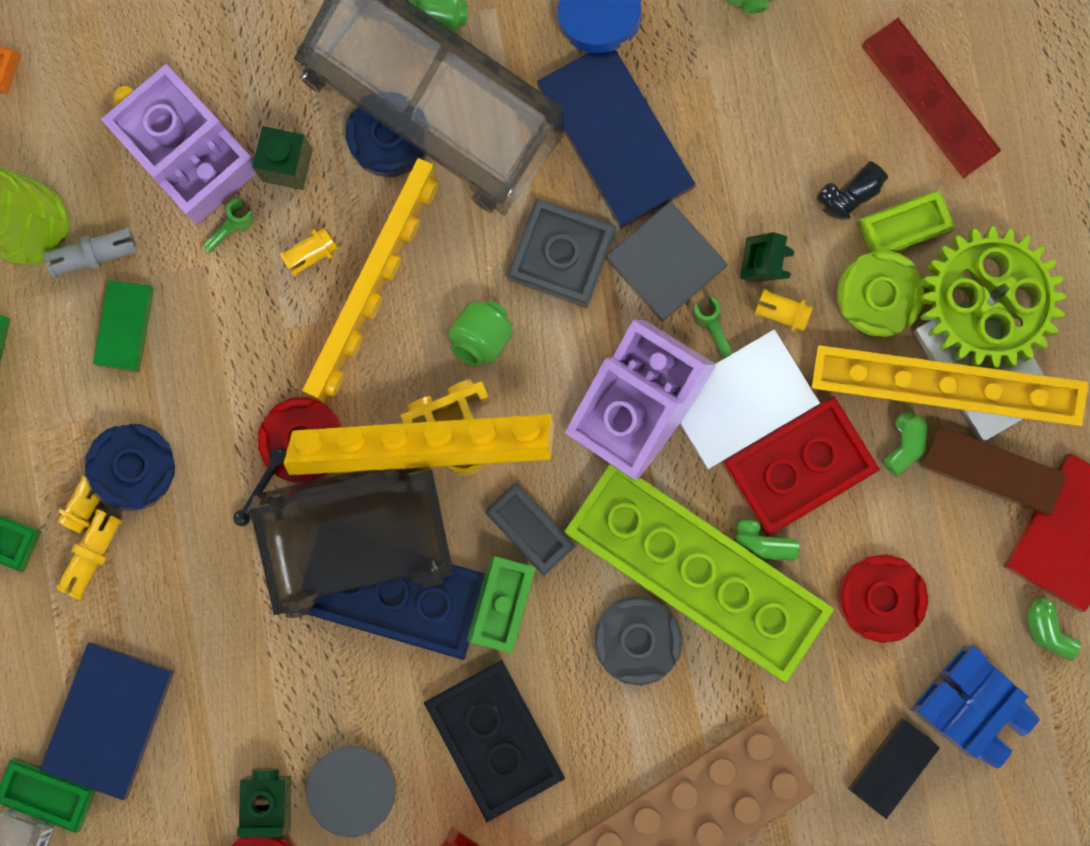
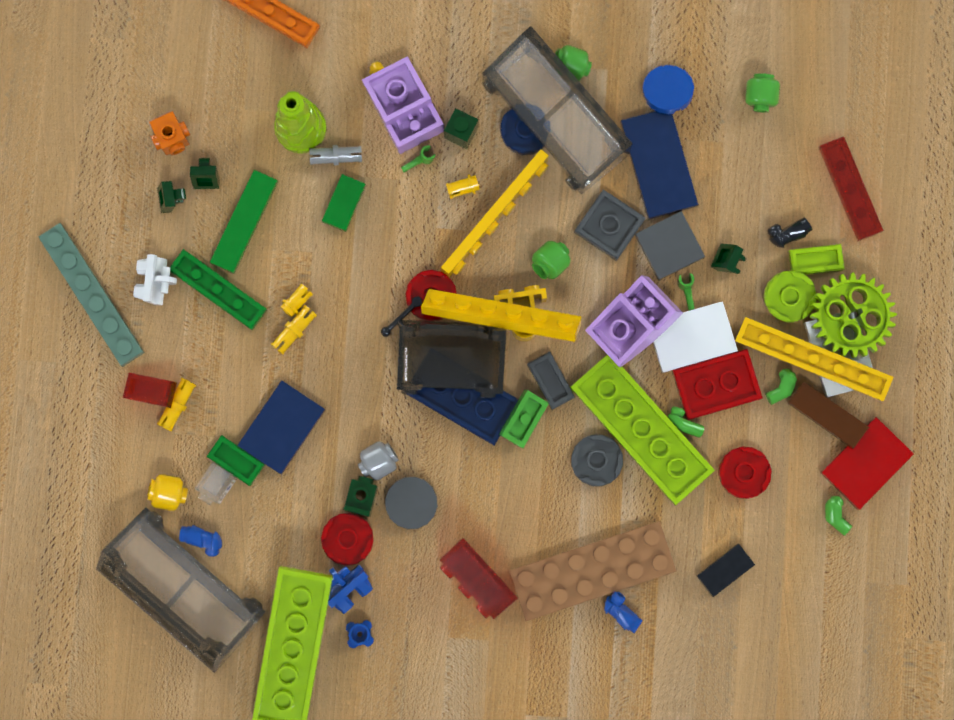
camera: 10 degrees right, 0 degrees up
(129, 467) = (329, 286): dark blue tile -> none
(277, 736) = (378, 460): none -> light grey head
(494, 740) = (500, 495): black tile -> none
(787, 310) = (732, 293): yellow pin -> none
(981, 710) = (779, 551): blue hips -> none

